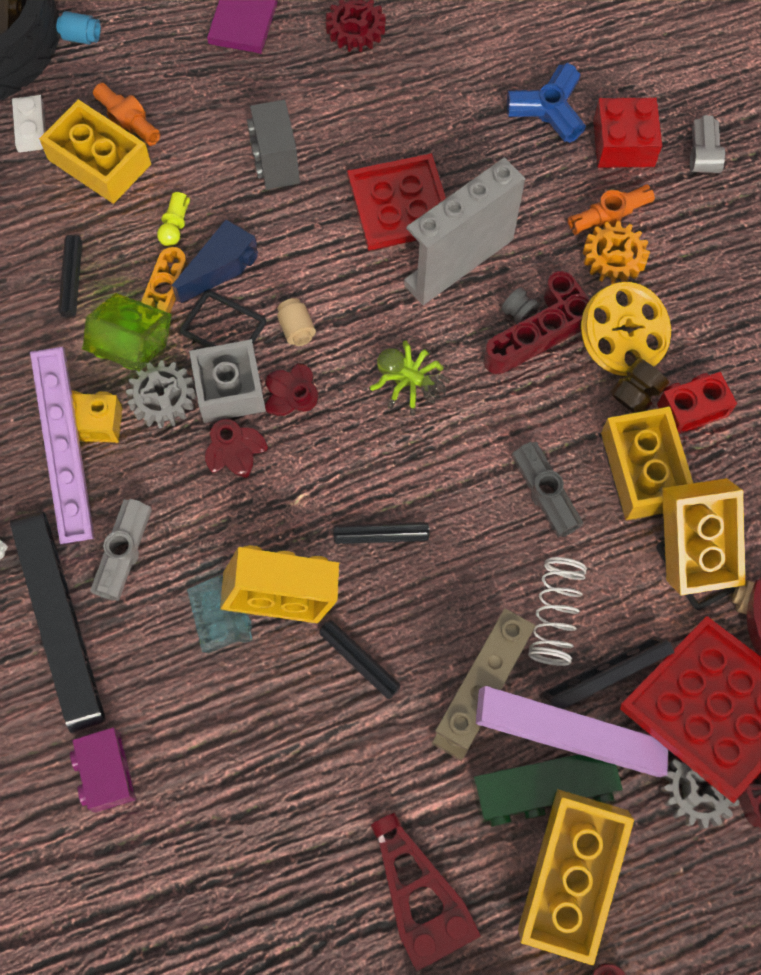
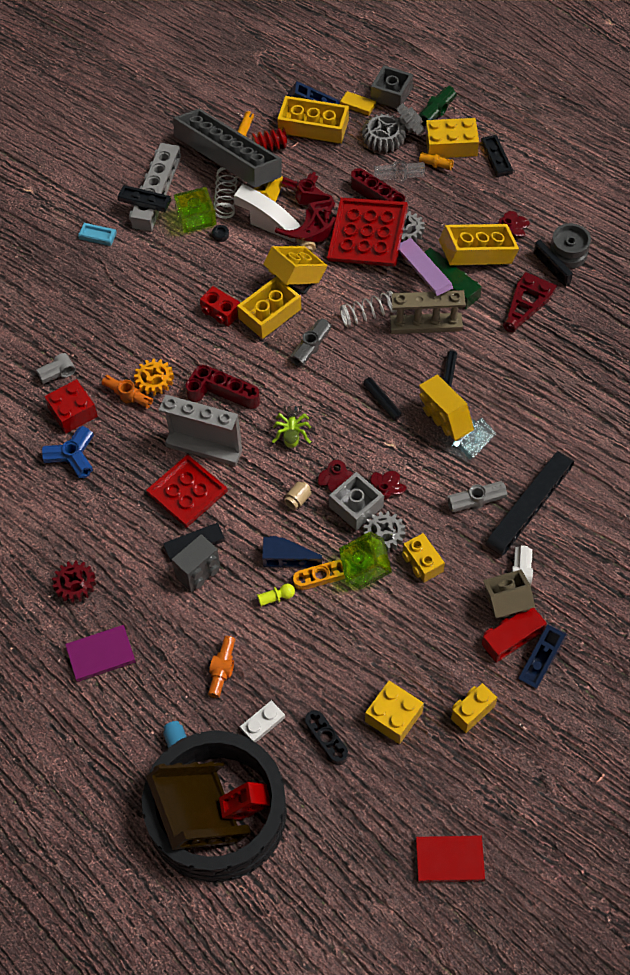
camera: 120 degrees left, 10 degrees down
(62, 445) = (447, 549): lavender tile -> none
(70, 276) = (347, 626): black axle -> none
(95, 151) = (262, 658): yellow brick -> none
(102, 770) = (578, 438): magenta brick -> none
(199, 304) = (336, 529): black piece -> none
(320, 175) = (211, 533): none -> black tile
(520, 306) = (217, 399): dark grey wheel -> none
(607, 673) = (380, 278): black tile -> none
(631, 317) = (200, 349): yellow wedge -> none
(639, 386) = (230, 327): dark brown wheel -> none

